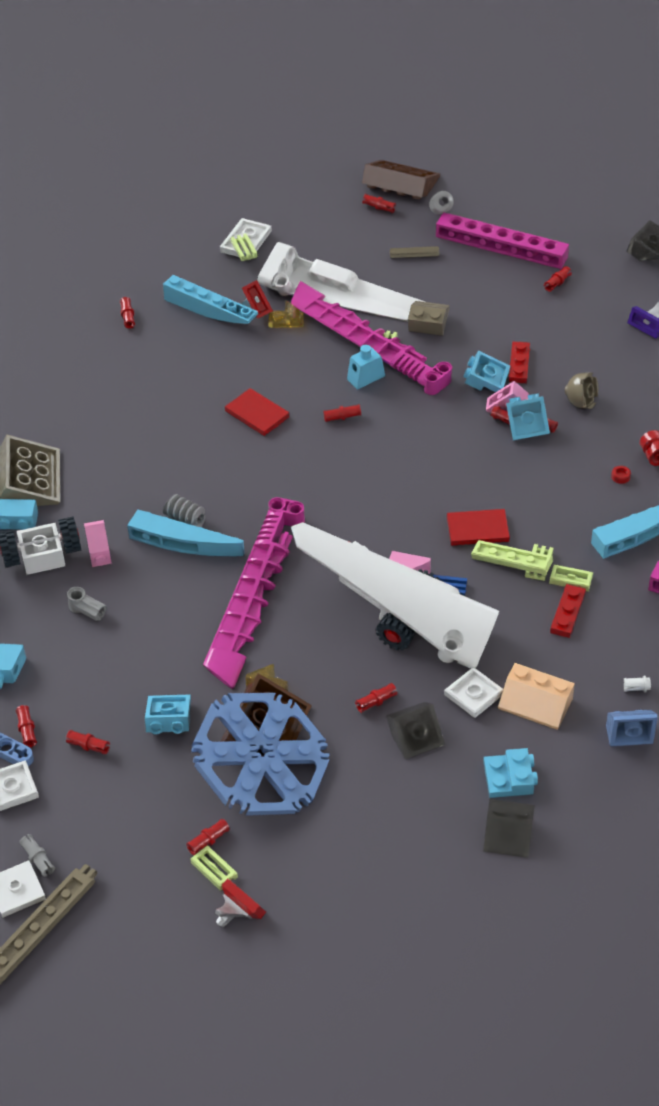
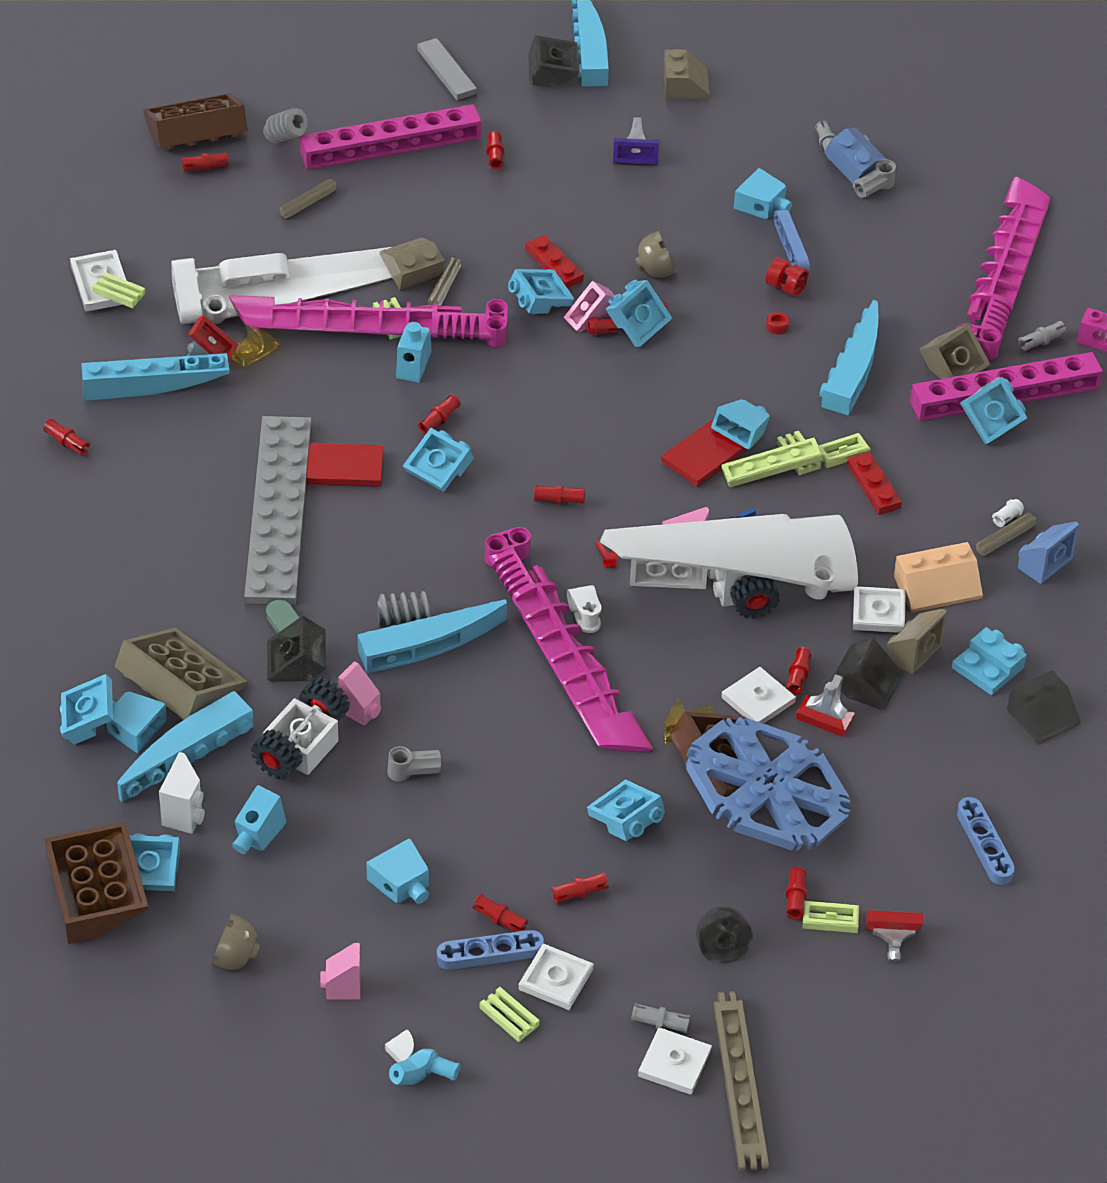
camera: 45 degrees left, 0 degrees up
(101, 501) = (296, 652): none -> clear smoke slope
(119, 480) = (280, 614): none -> sand green tile
(128, 829) = (723, 934): none -> clear smoke cylinder
(188, 417) = (278, 510): none -> light grey plate
(291, 576) = (585, 607): none -> white piece
(309, 437) = (439, 459): none -> medium azure plate
(333, 698) = (758, 696): none -> white plate
(357, 499) = (559, 494): none -> red pin
(361, 734) = (826, 709): none -> piece
(372, 891) = (982, 841): none -> medium blue beam
(437, 339) = (445, 281): none -> dark tan axle
(471, 729) = (918, 640): none -> dark tan slope
(518, 520) = (741, 422): none -> medium azure torso
(584, 219) = (446, 69): none -> light grey tile
(620, 697) = (1006, 534): none -> dark tan axle

